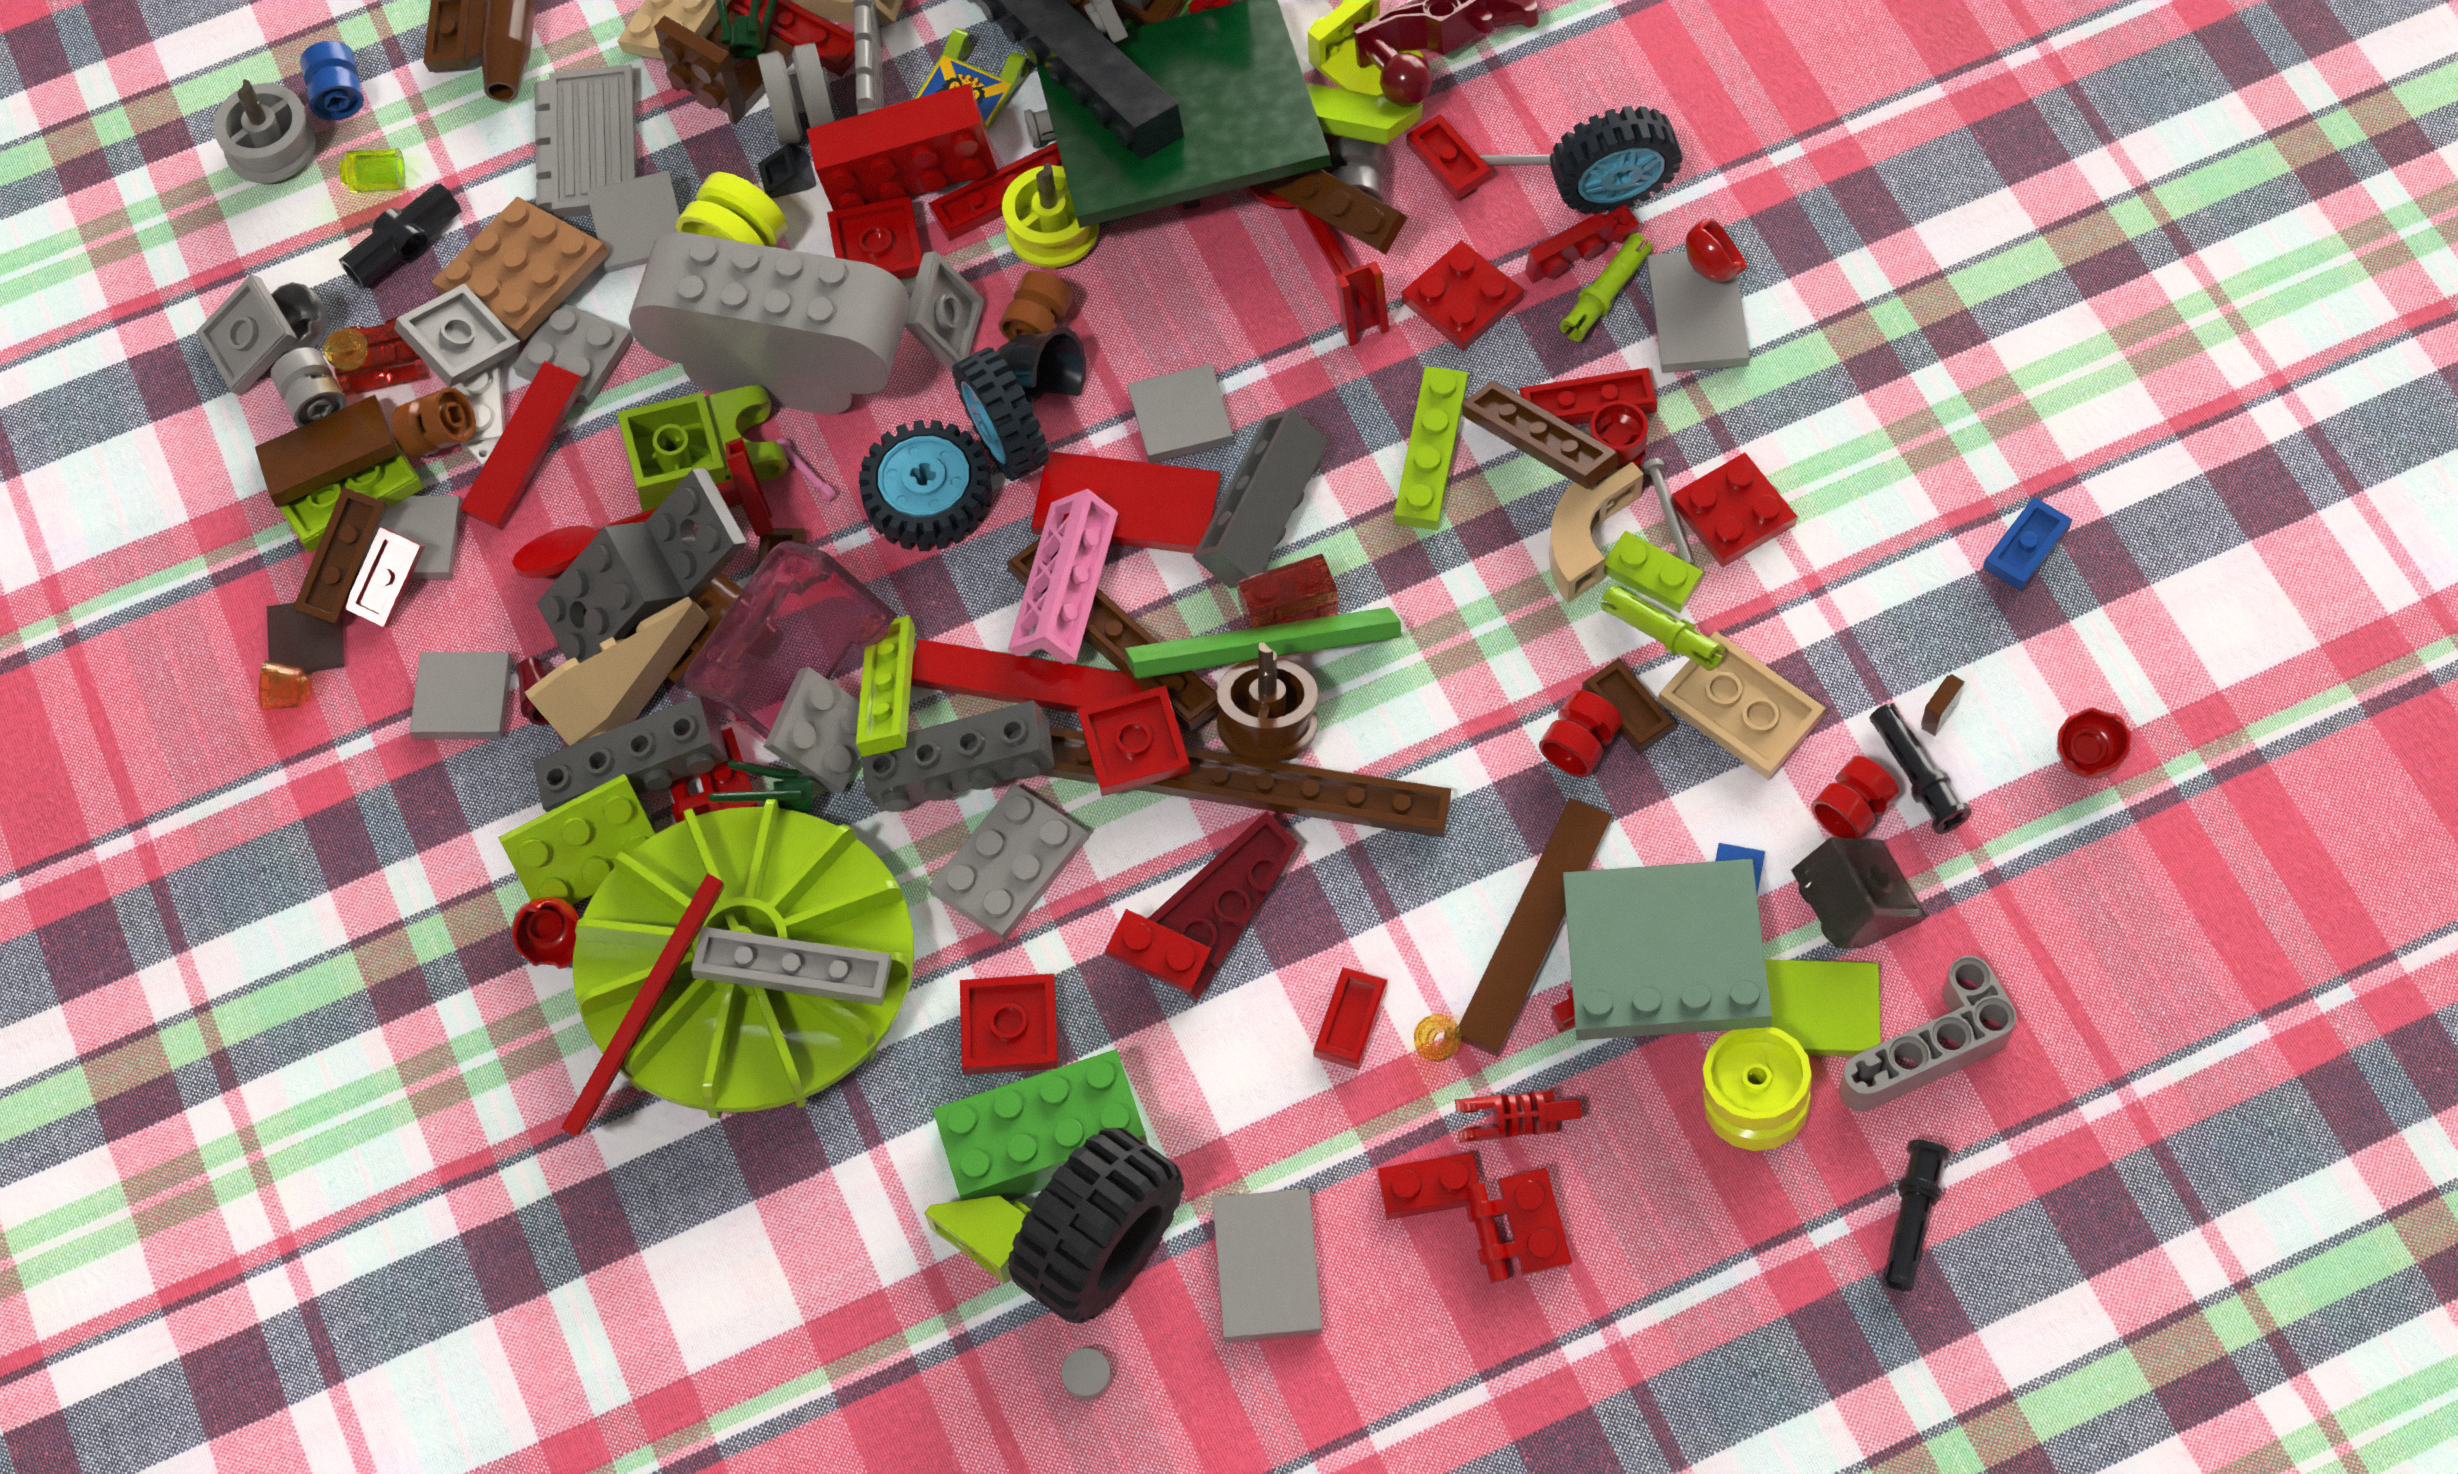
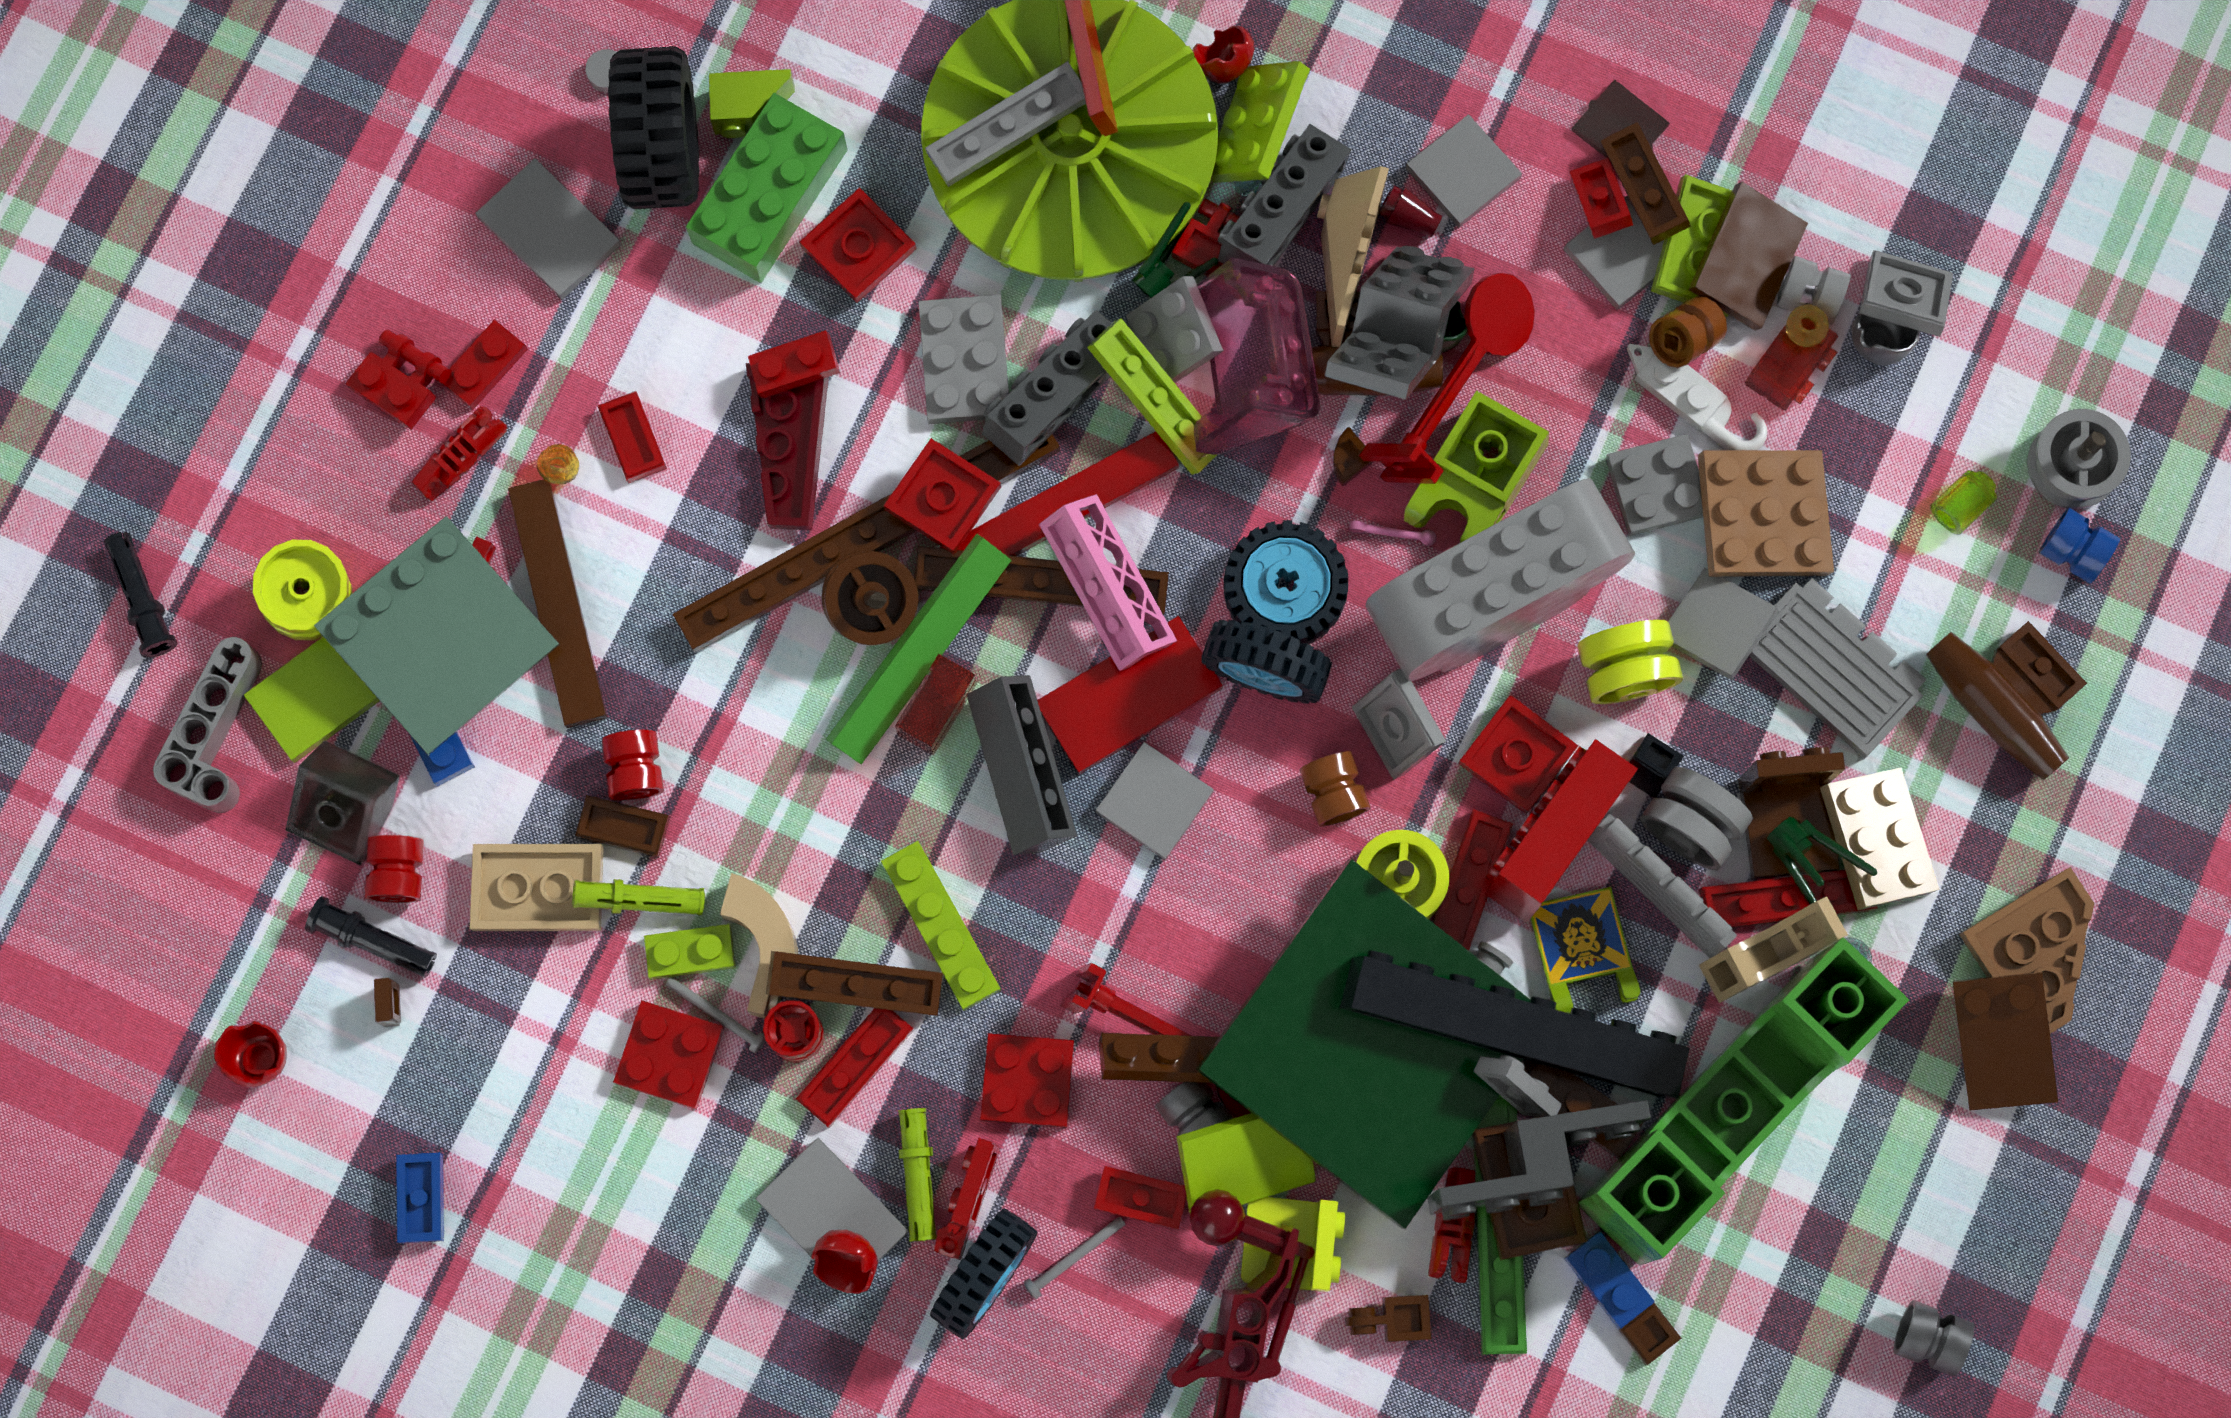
camera: 135 degrees right, 15 degrees up
(283, 686) = (1589, 72): clear orange hat -> none
(400, 235) = (1885, 466): black piece -> none
(456, 335) = (1741, 407): light grey plate -> none
(522, 445) = (1612, 377): red tile -> none
(1047, 362) = (1300, 734): black helmet -> none

